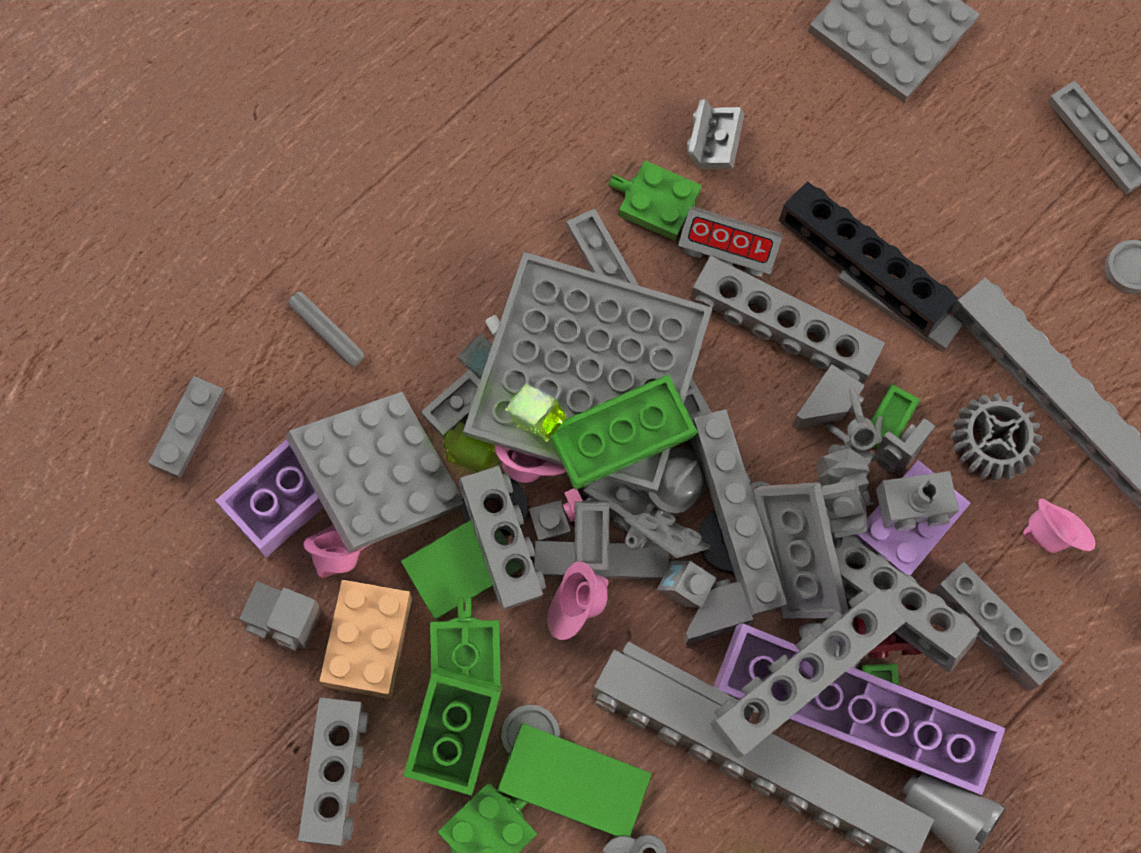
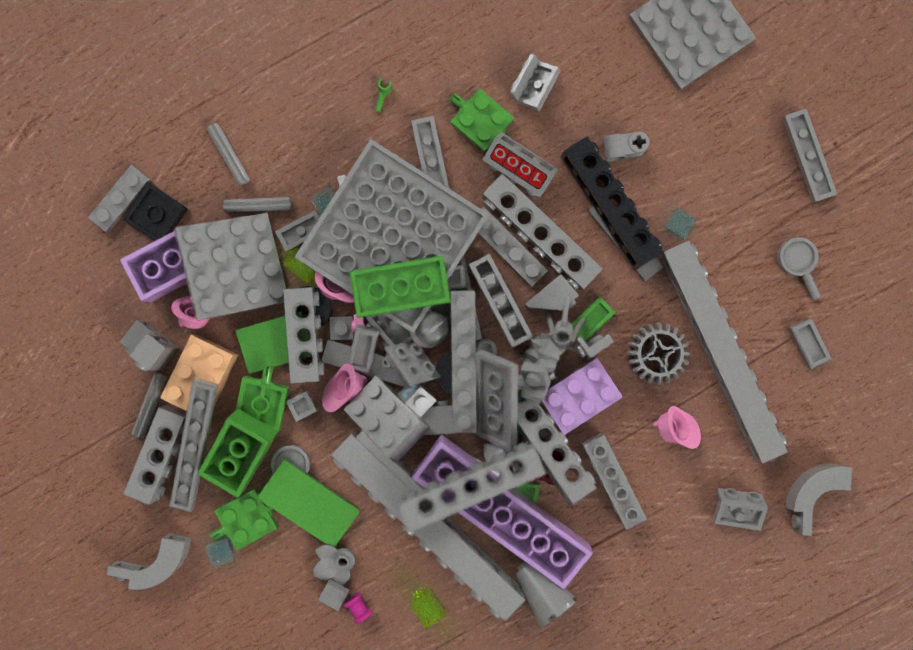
camera: 25 degrees right, 15 degrees up
(242, 433) = (155, 213): none -> black tile
(300, 705) = (149, 405): none -> light grey axle
(384, 385) = (257, 204): none -> light grey axle
(385, 738) = (193, 444): none -> light grey tile
(516, 197) = (383, 92): none -> bright green hand
(524, 644) = (301, 406): none -> light grey plate
(536, 412) = (343, 260): clear neon green brick -> none
(655, 619) = (386, 419): none -> light grey brick
(754, 357) = (511, 250): none -> light grey plate
(761, 422) = (500, 300): none -> light grey brick
(856, 186) = (621, 146): none -> light grey piece
(917, 500) = (584, 389): light grey brick -> none
(965, 264) = (680, 223): none -> clear light blue tile

